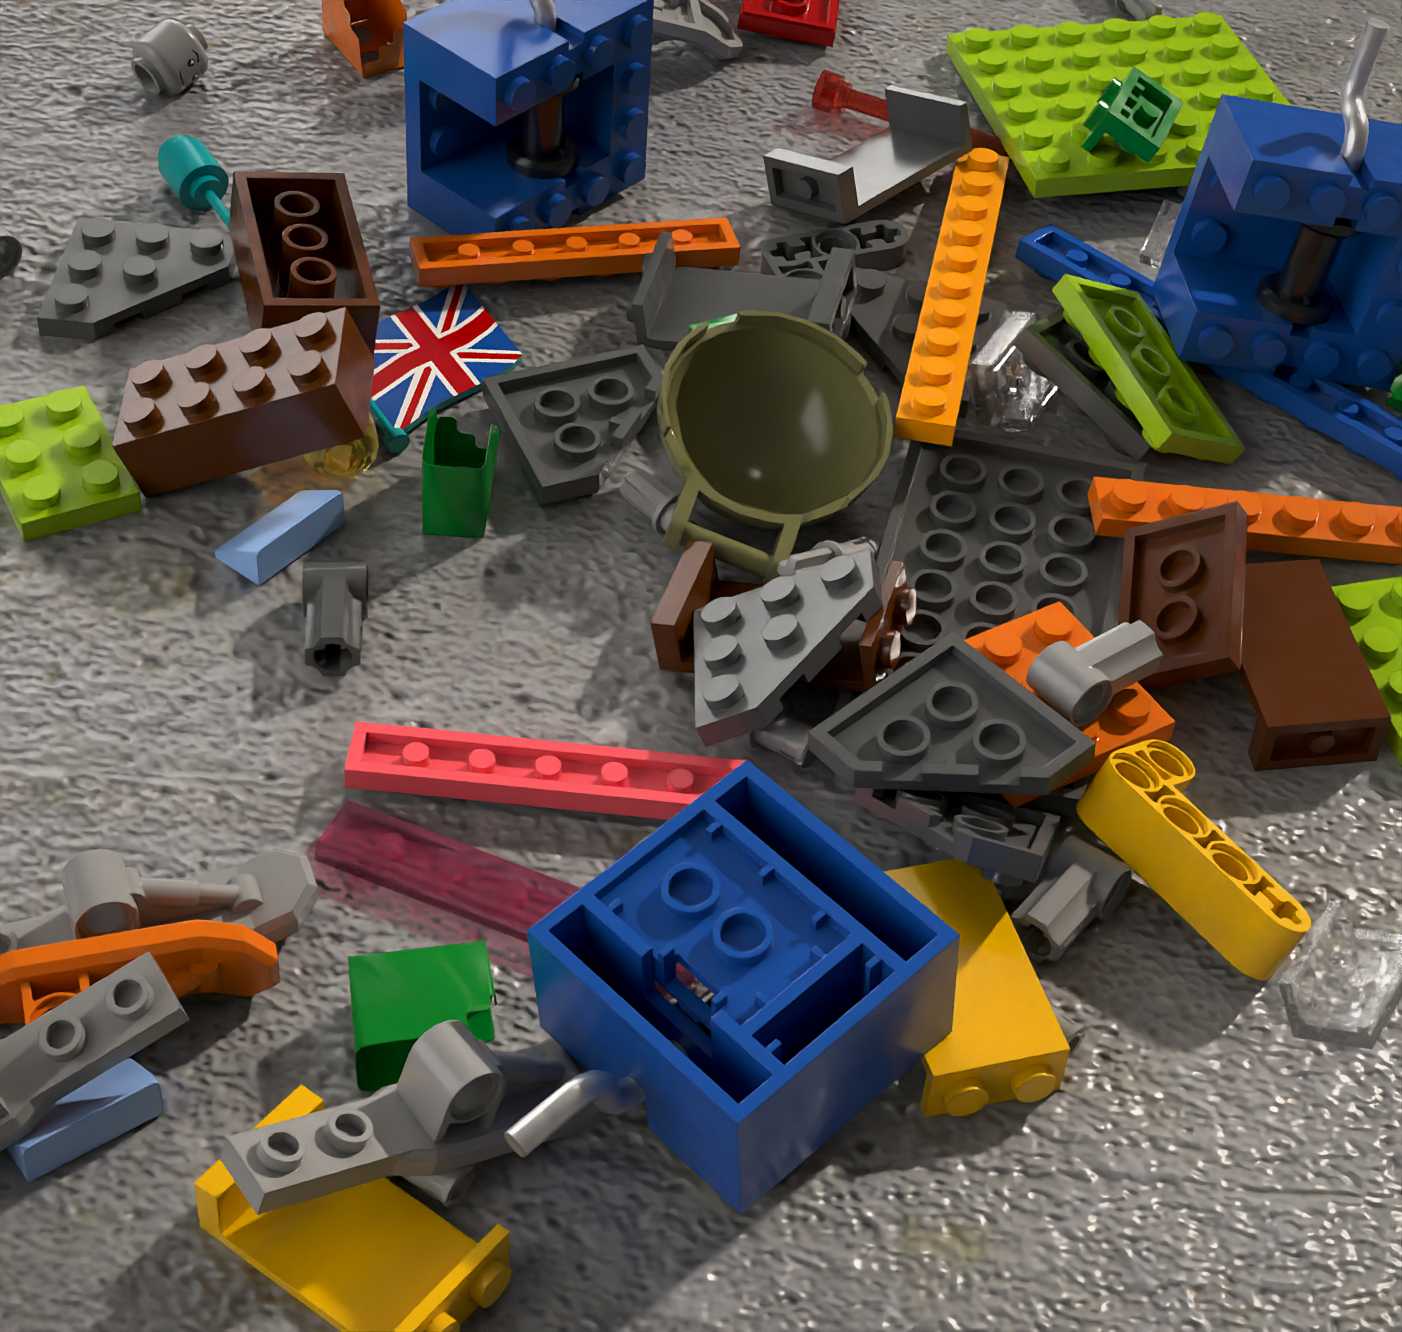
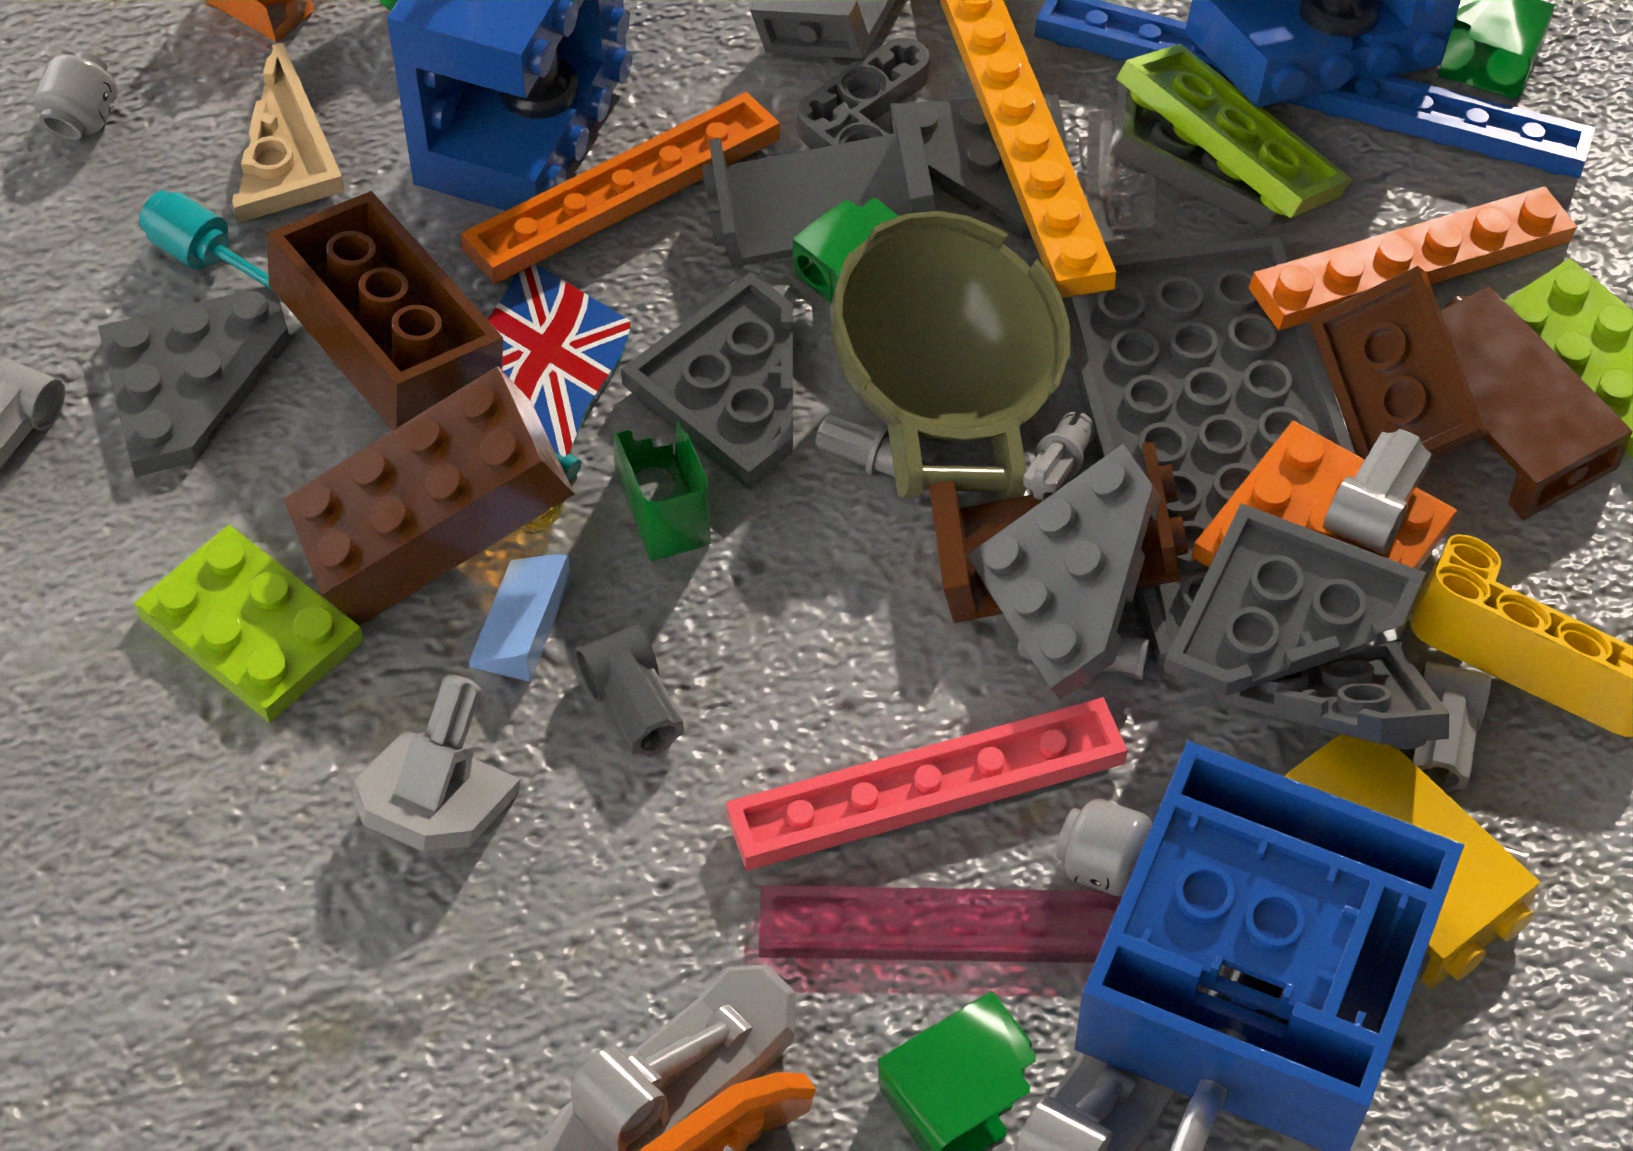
camera: 20 degrees left, 10 degrees up
(118, 619) = (429, 784): none -> light grey piece
(318, 136) = (287, 150): none -> tan wing

